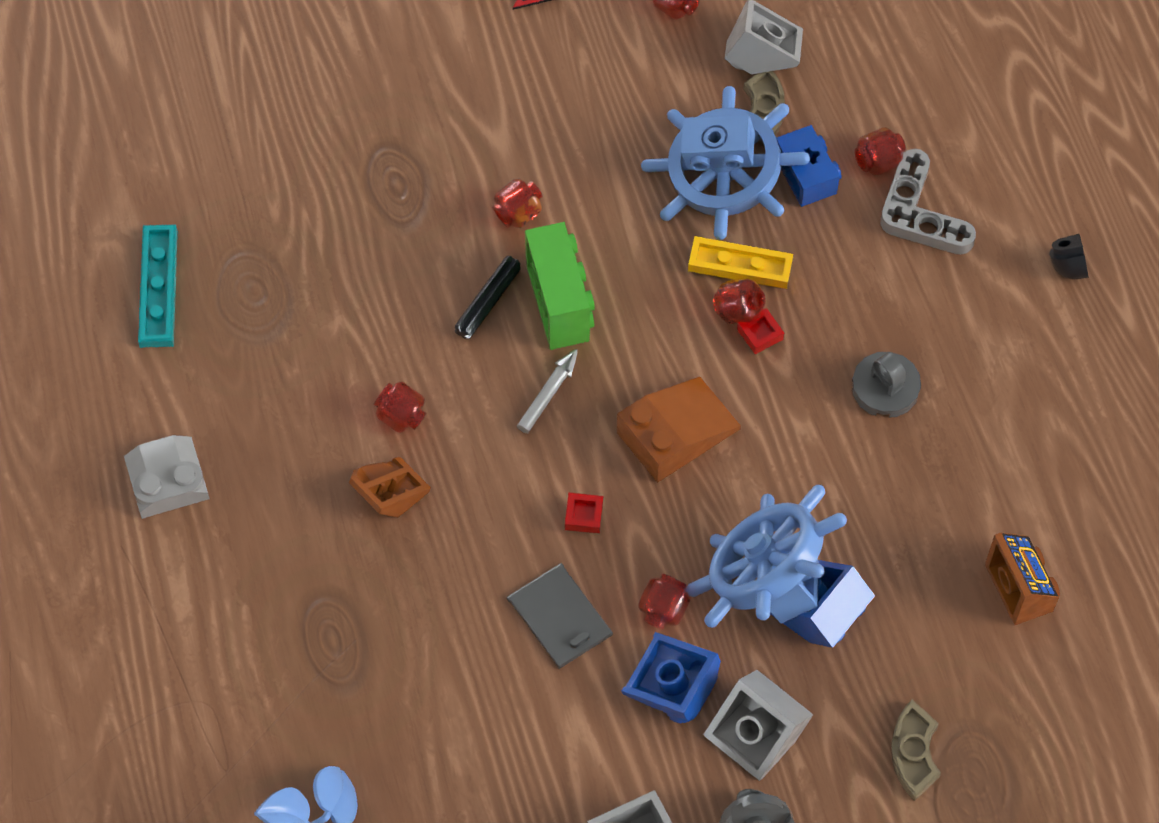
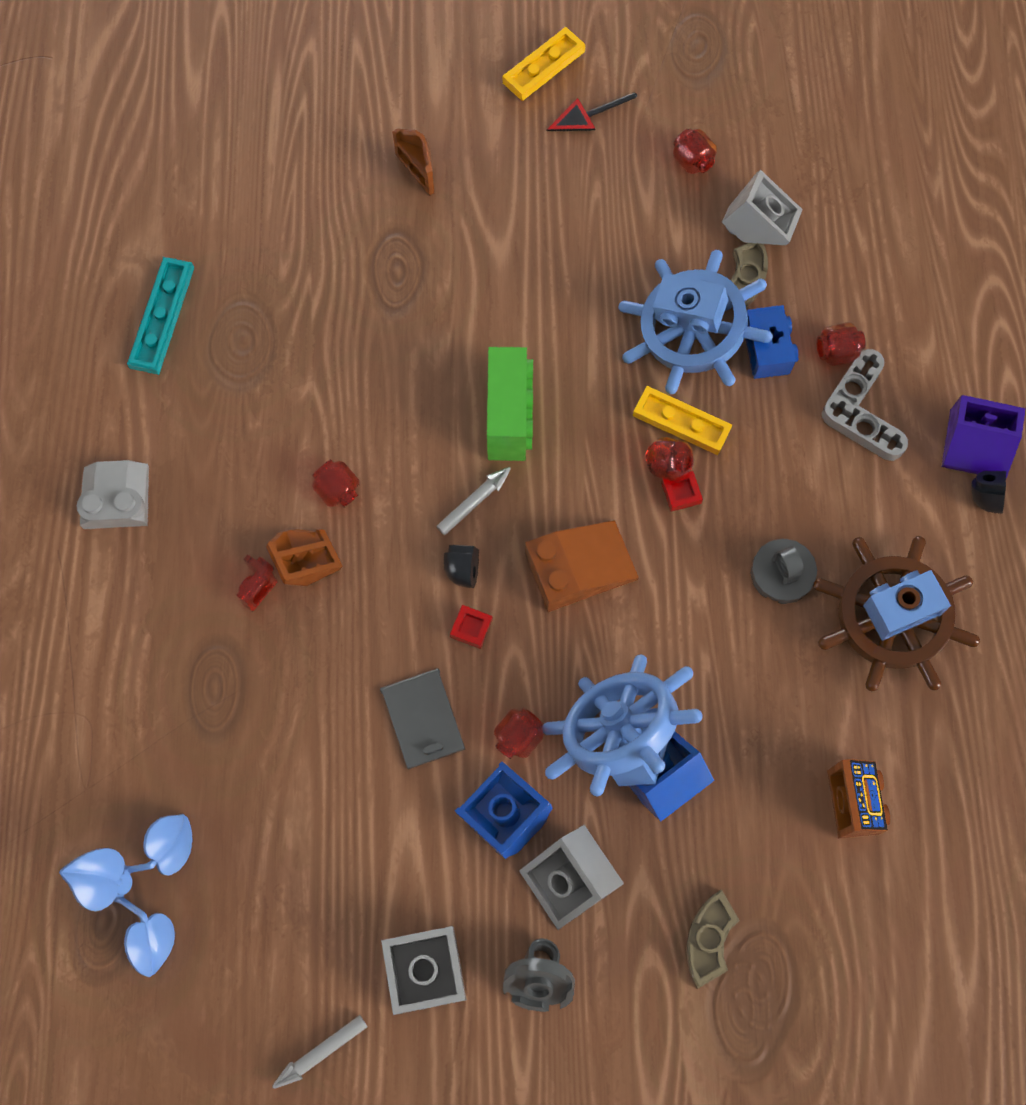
camera: 15 degrees right, 10 degrees up
(348, 524) = (256, 587): none -> clear red bracket
(384, 62) = (415, 154): none -> dark orange slope
(487, 297) = (445, 397): black axle -> none
(517, 203) = (496, 315): clear red head -> none
(555, 454) = (462, 565): none -> black piece
(1007, 389) = (896, 610): none -> reddish brown brick
(1046, 205) = (982, 435): none -> dark purple slope

